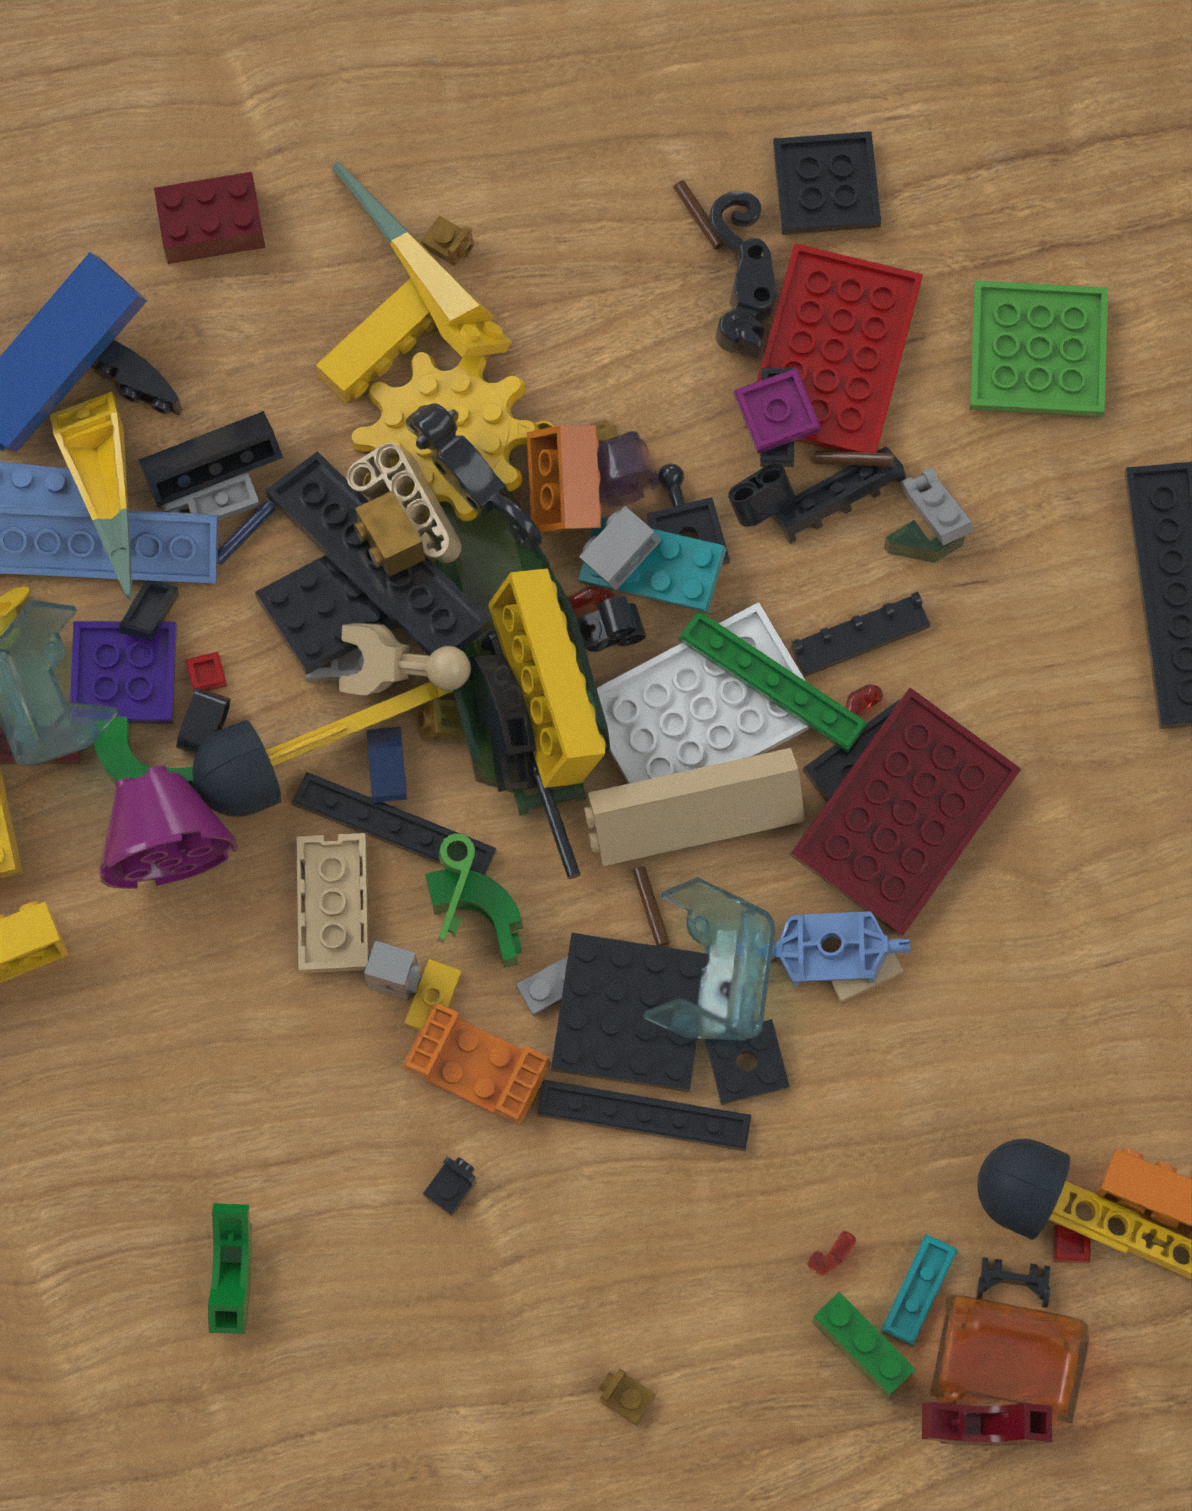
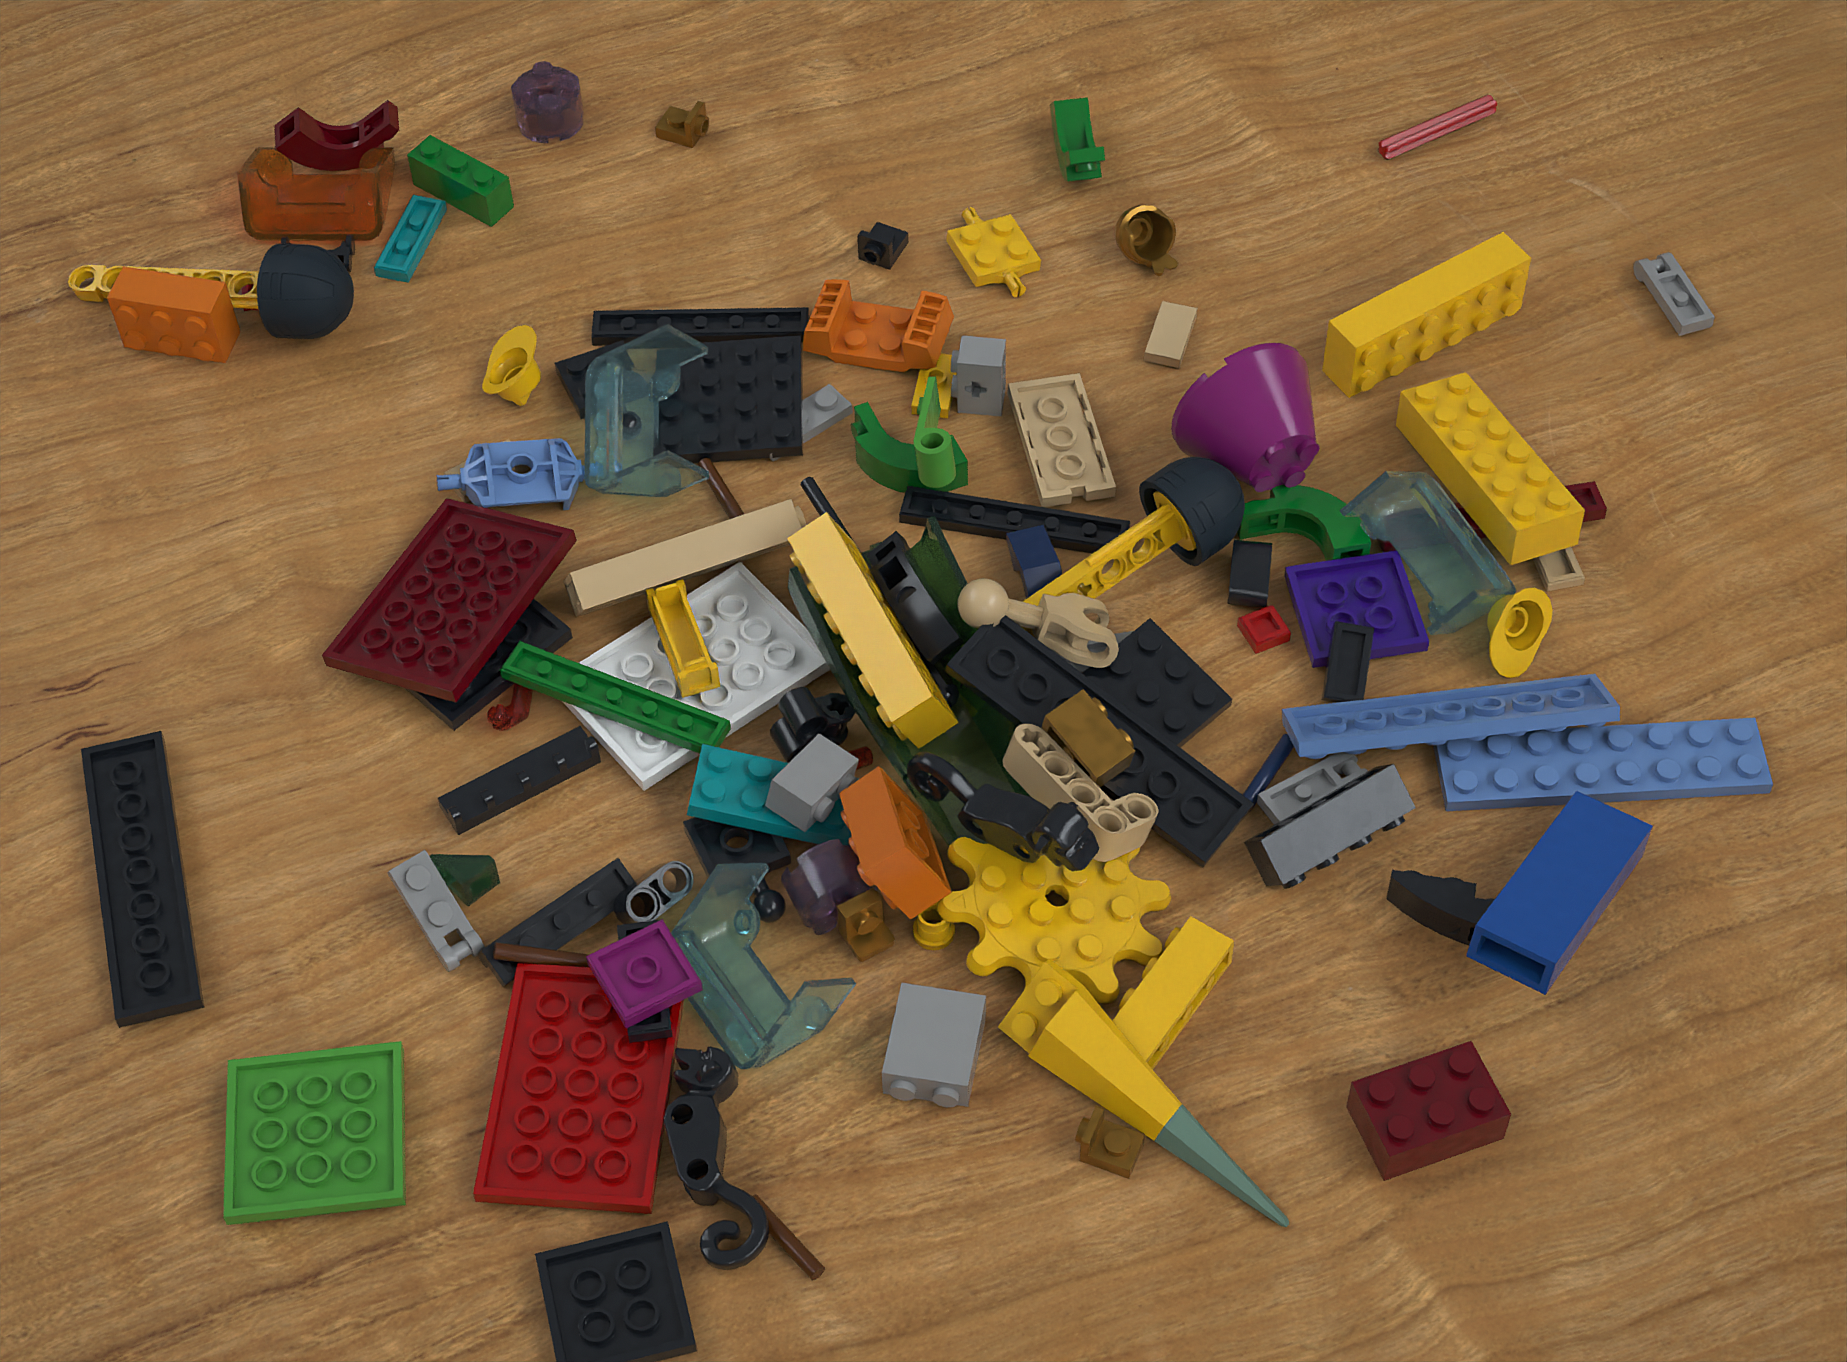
camera: 170 degrees right, 20 degrees down
(95, 454) = (1469, 801): yellow plate -> none
(194, 1130) = (1147, 237): none -> pearl gold hat
(199, 1018) = (1170, 334): none -> tan tile
(343, 1157) = (993, 251): none -> yellow plate
(562, 334) = (934, 1045): none -> light grey brick
(700, 400) = (739, 995): none -> clear light blue windscreen
(706, 719) = (682, 639): none -> yellow container
(763, 1420) = (548, 103): none -> brick
(831, 1075) = (512, 366): none -> yellow piece
(836, 1255) = (496, 243): clear red arm -> none

